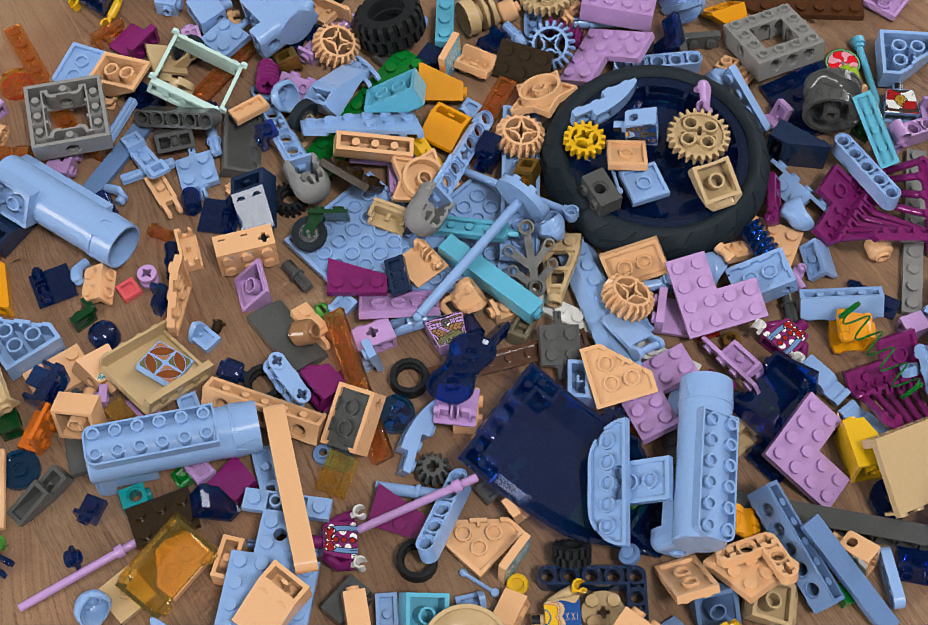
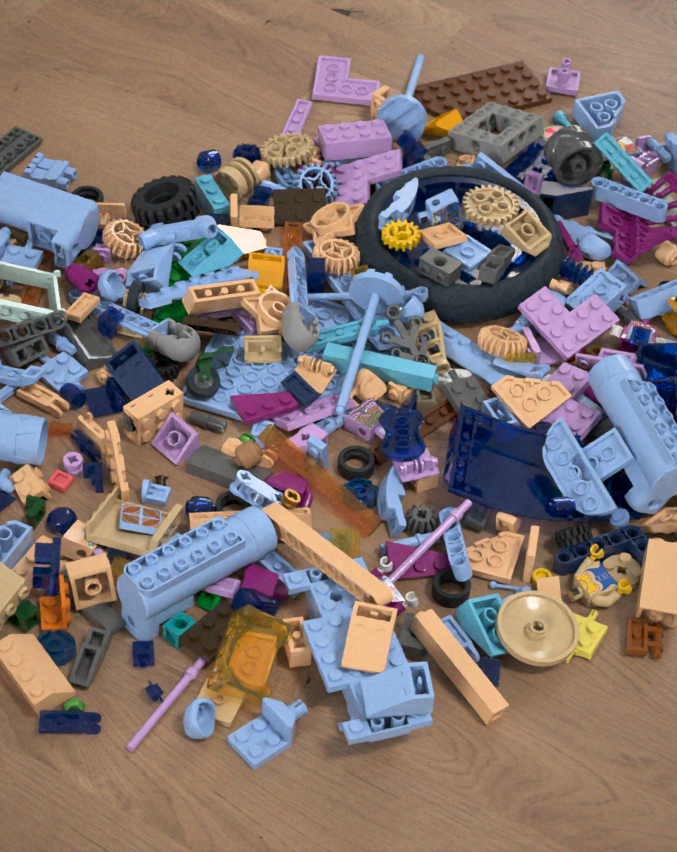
camera: 30 degrees left, 15 degrees down
(314, 395) = (290, 499): none -> pearl gold bush
(353, 419) = (335, 499): piece -> none
(362, 53) = (161, 234): none -> light blue plate
(574, 516) = (560, 506): none -> clear blue brick
(639, 323) = (520, 357): none -> clear yellow axle
(641, 259) = (495, 310): light nougat plate -> none
(663, 207) = (496, 264): none -> dark grey slope
(704, 91) = (472, 172): lavender piece -> none
(781, 341) = (640, 335): none -> clear blue slope

